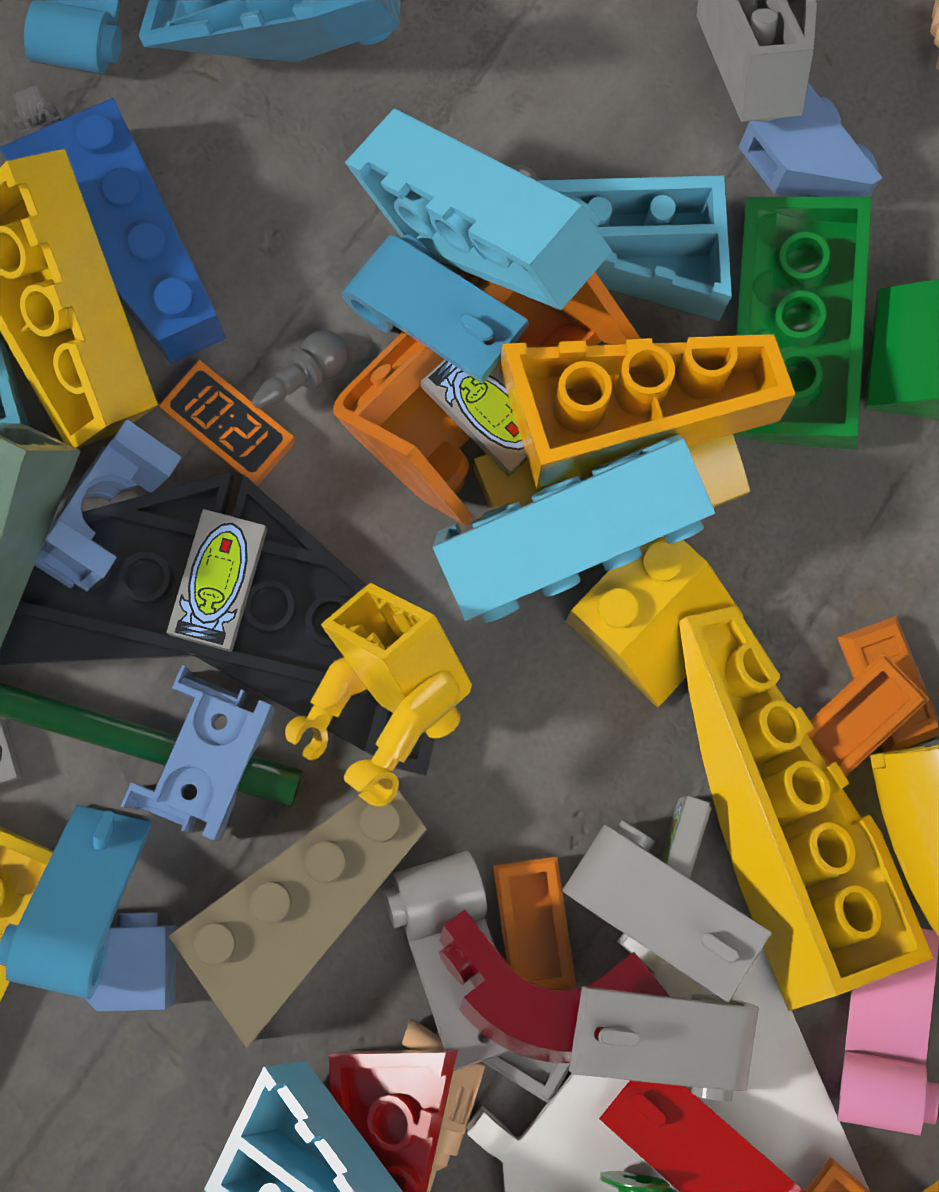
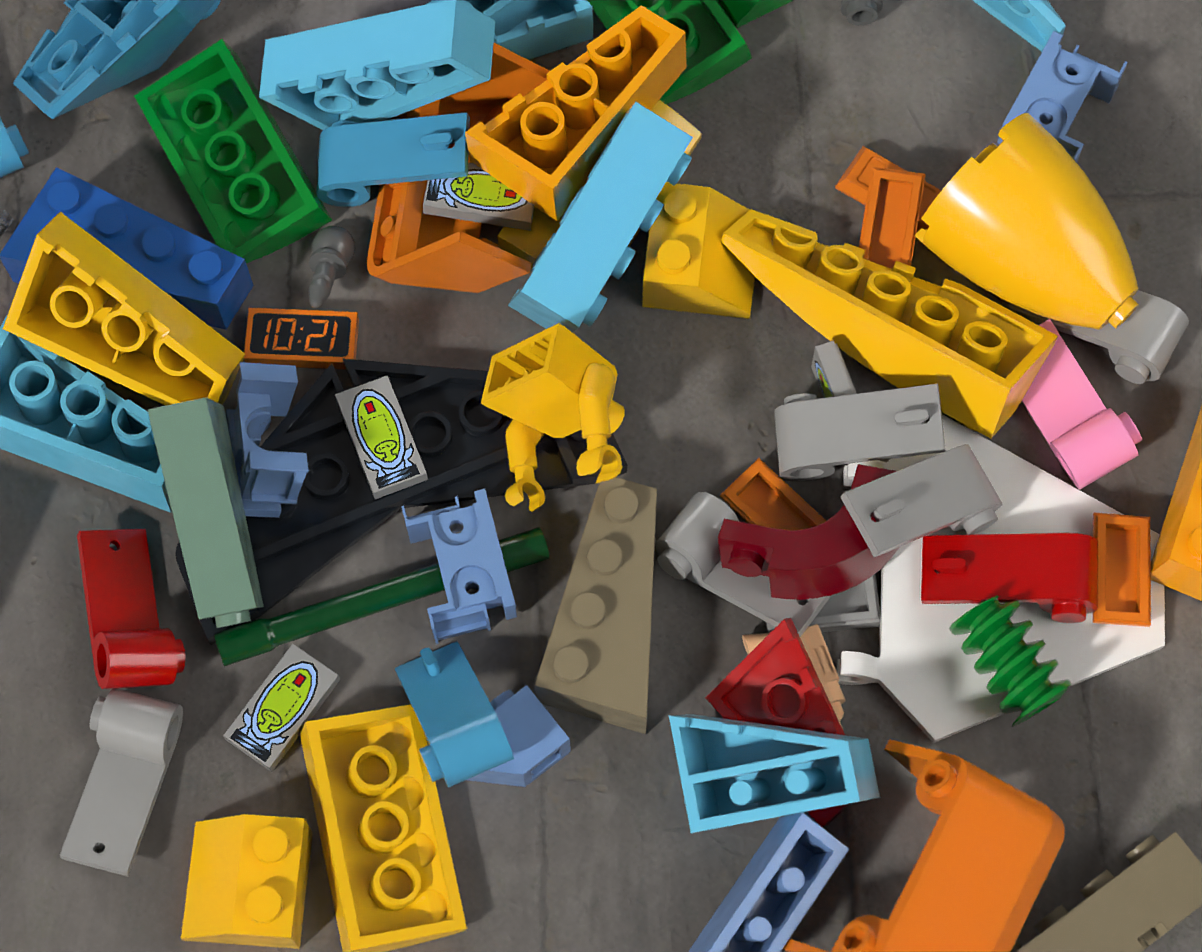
camera: 30 degrees left, 10 degrees down
(294, 198) = (232, 155): none -> green slope

